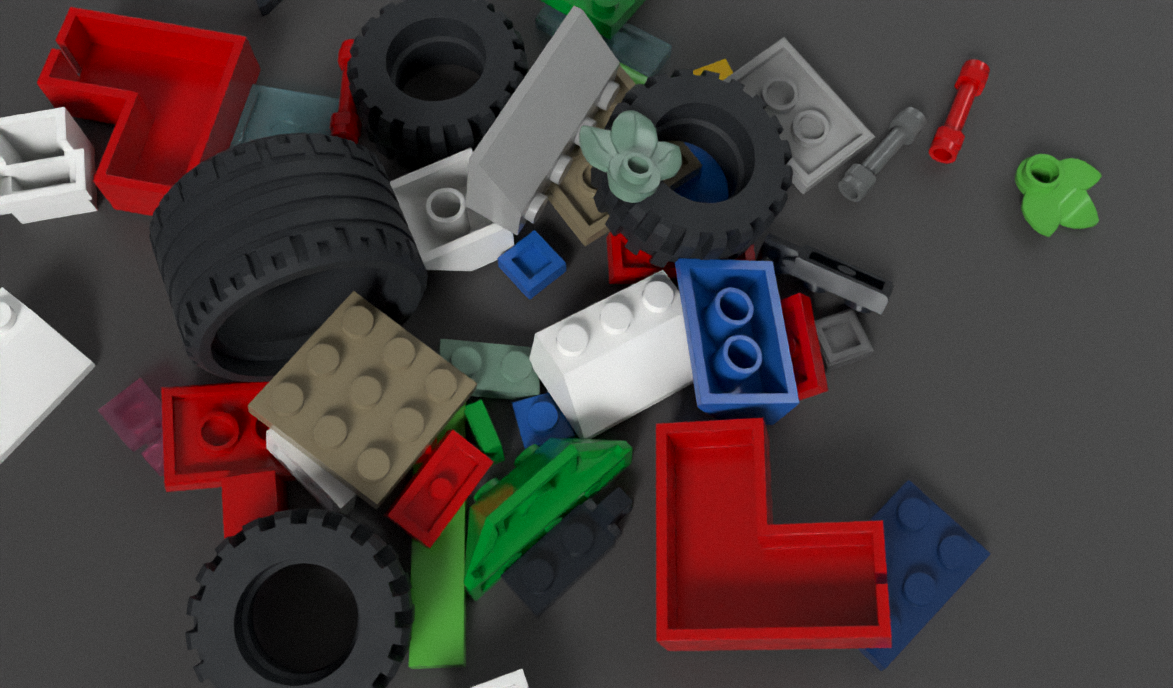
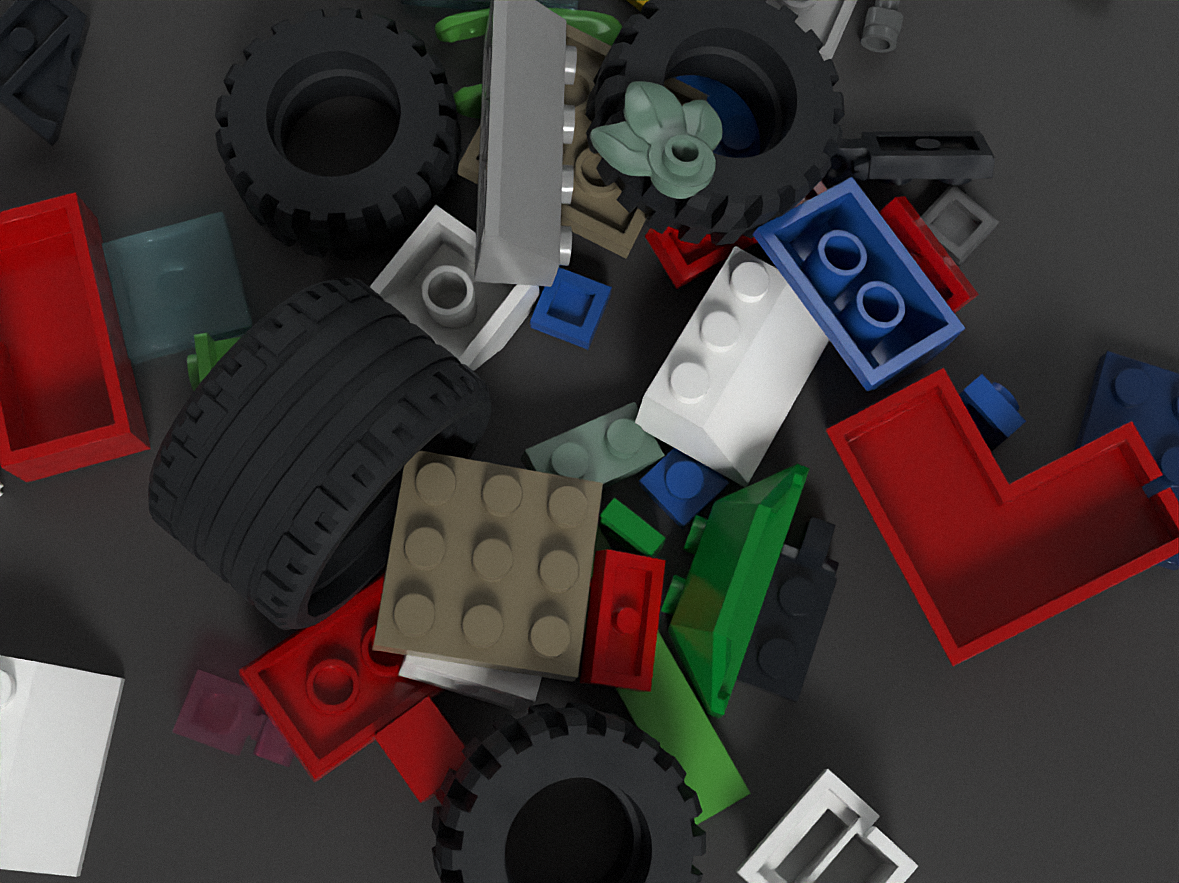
camera: 30 degrees left, 10 degrees up
(345, 122) = (247, 238): red bar -> none
(793, 477) = (992, 410): none -> blue plate

